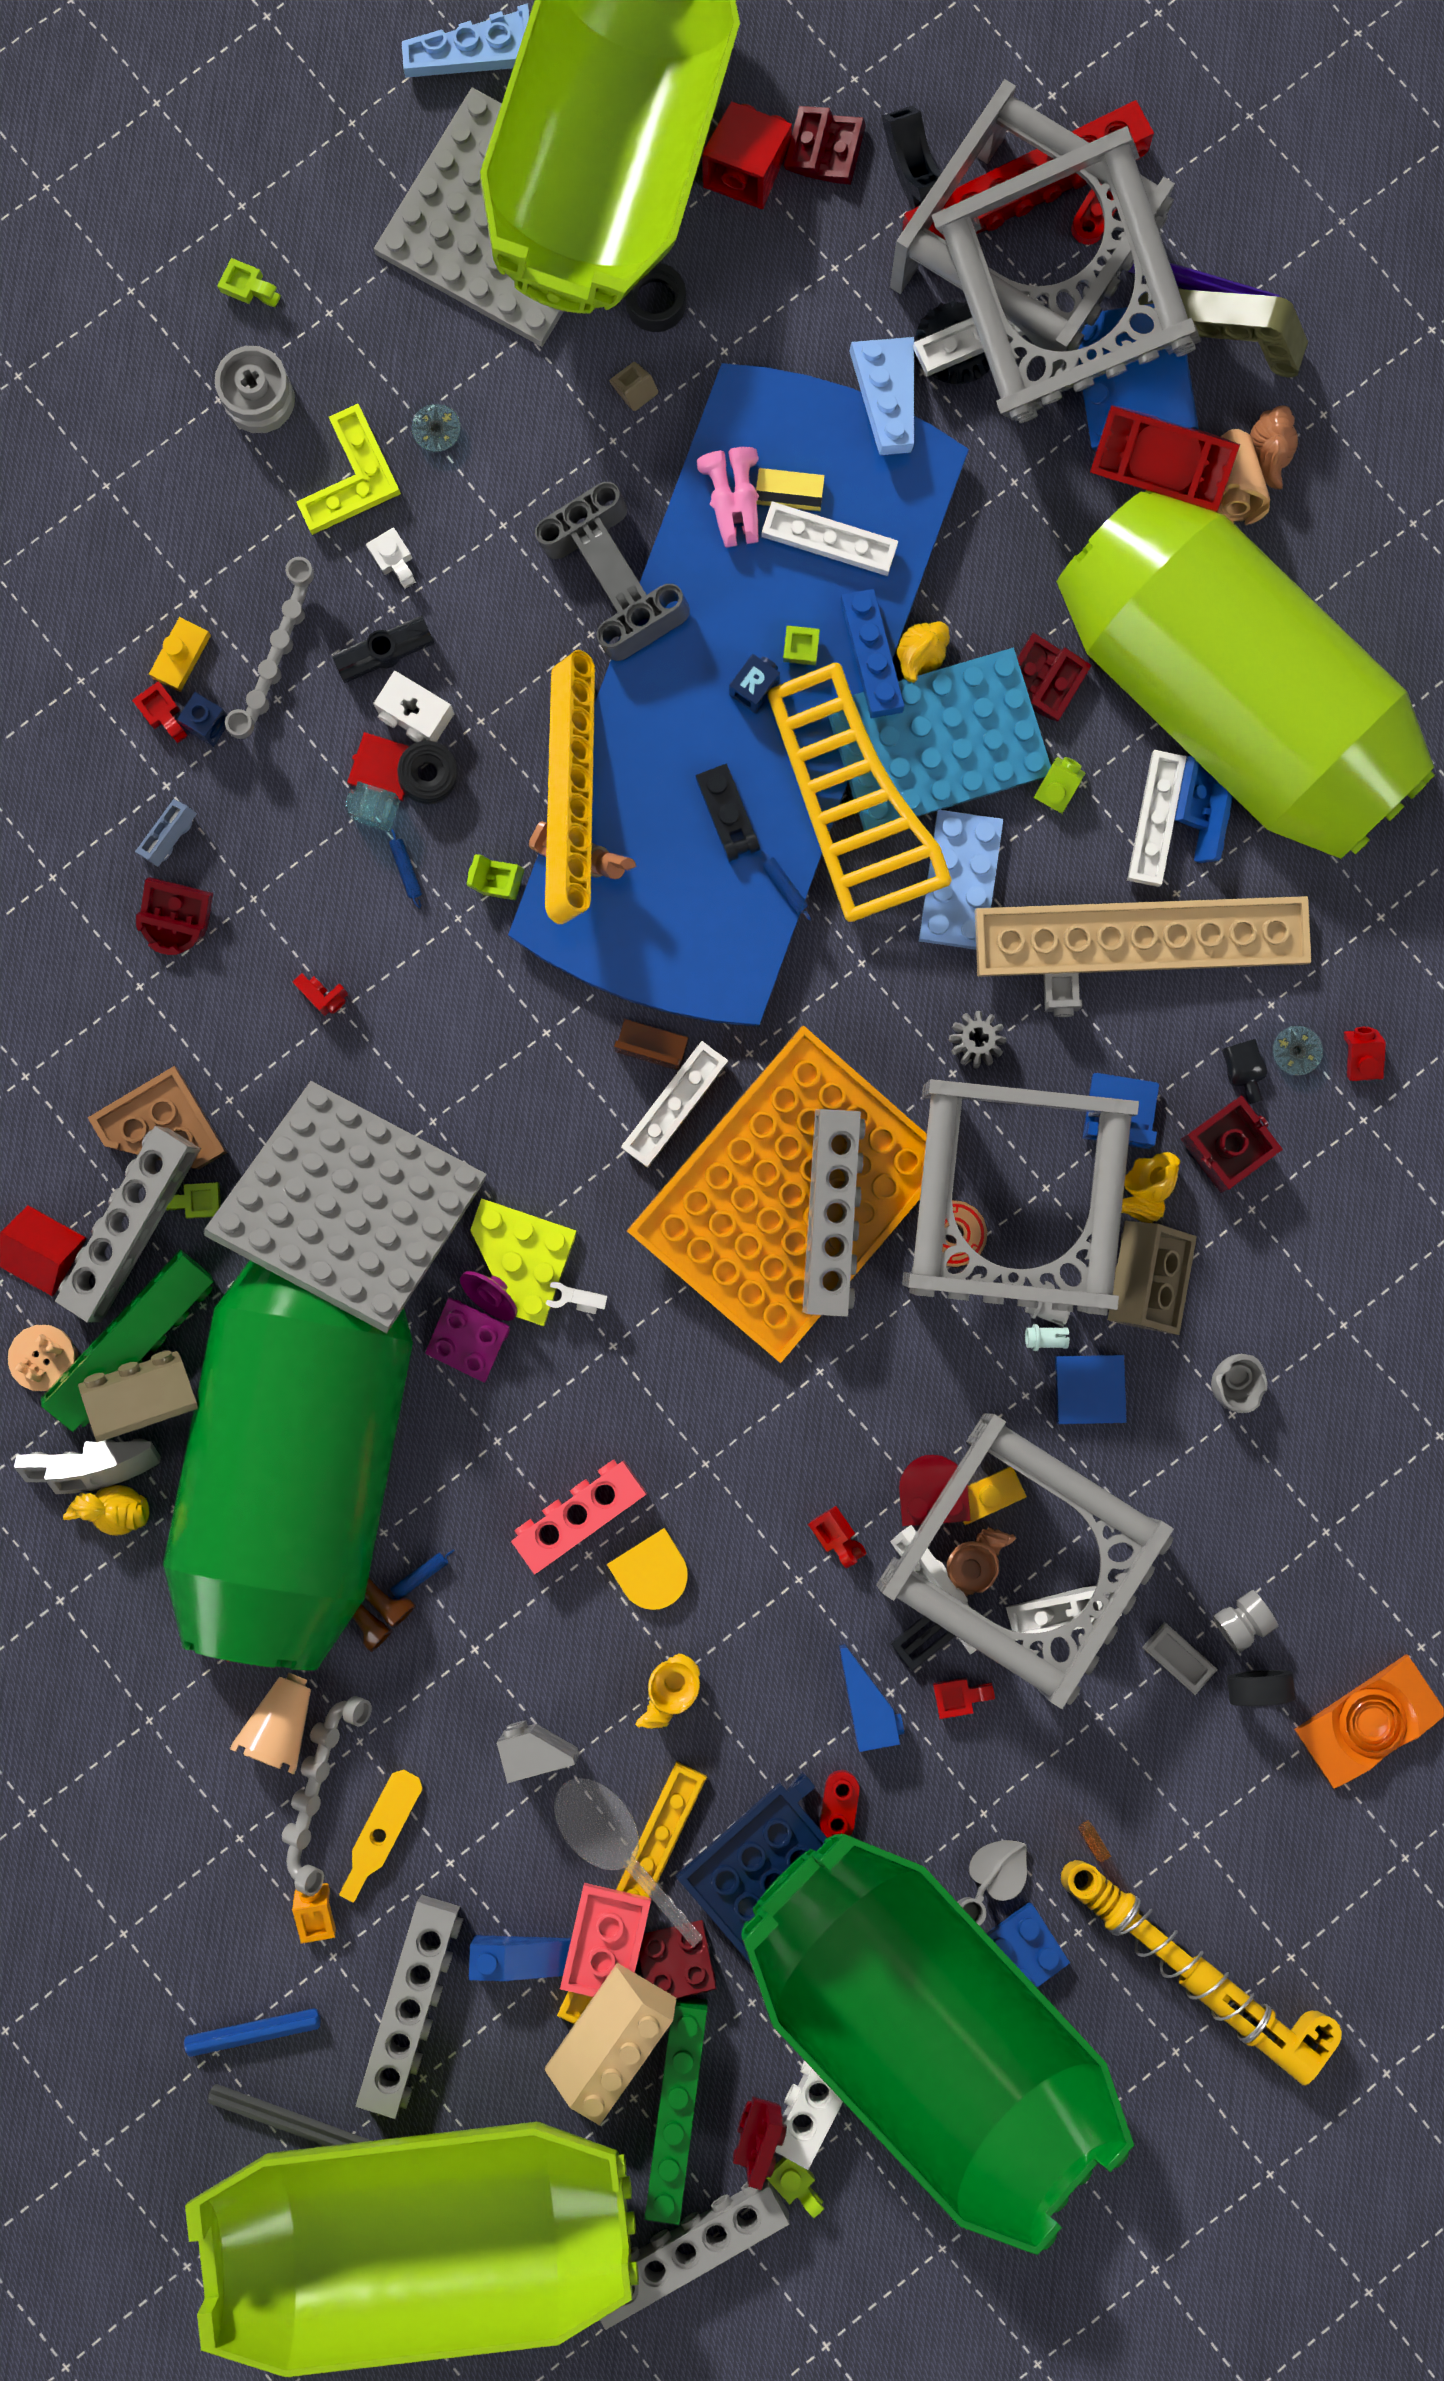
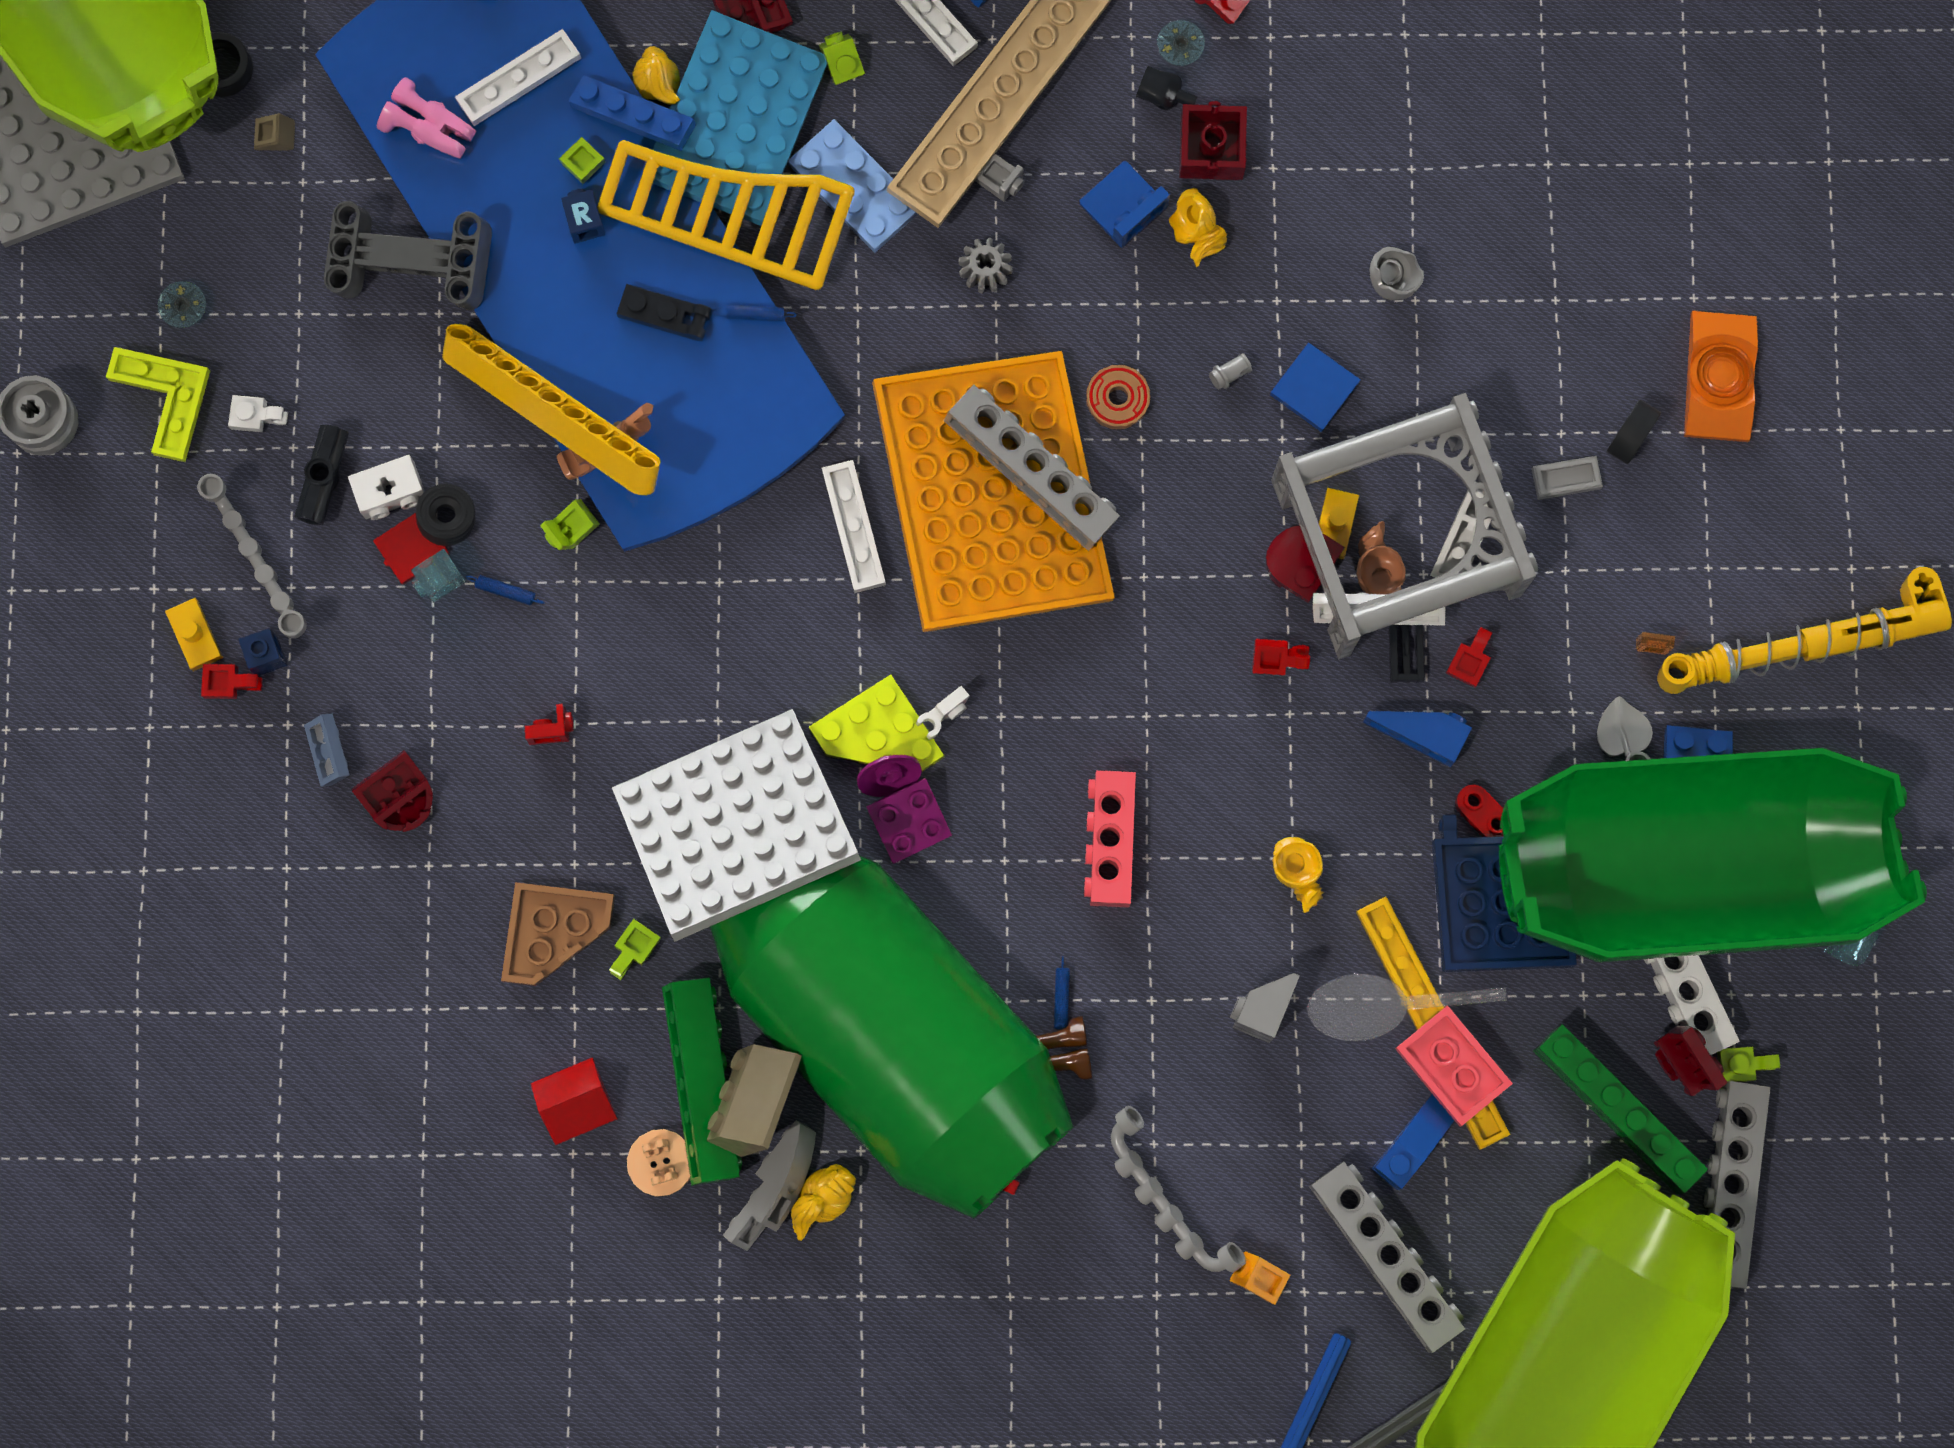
camera: 55 degrees left, 5 degrees down
(143, 1217) = (627, 1022): light grey brick -> none
(277, 1725) = (1093, 1193): light nougat cone -> none
(390, 1816) = (1228, 1163): yellow piece -> none
(610, 2042) = (1531, 1117): tan slope -> none
(651, 1044) = (793, 509): reddish brown panel -> none
(651, 1572) = (1197, 818): yellow tile -> none
(676, 1965) = (1510, 1028): dark red hinge -> none
(790, 489) = (455, 77): light yellow tile -> none
(929, 1268) = (1127, 420): light grey arch -> none
(1046, 1337) = (1245, 394): light aqua pin -> none
(1152, 1277) = (1266, 277): dark tan slope -> none
(1243, 1623) = (1576, 403): light grey wheel -> none

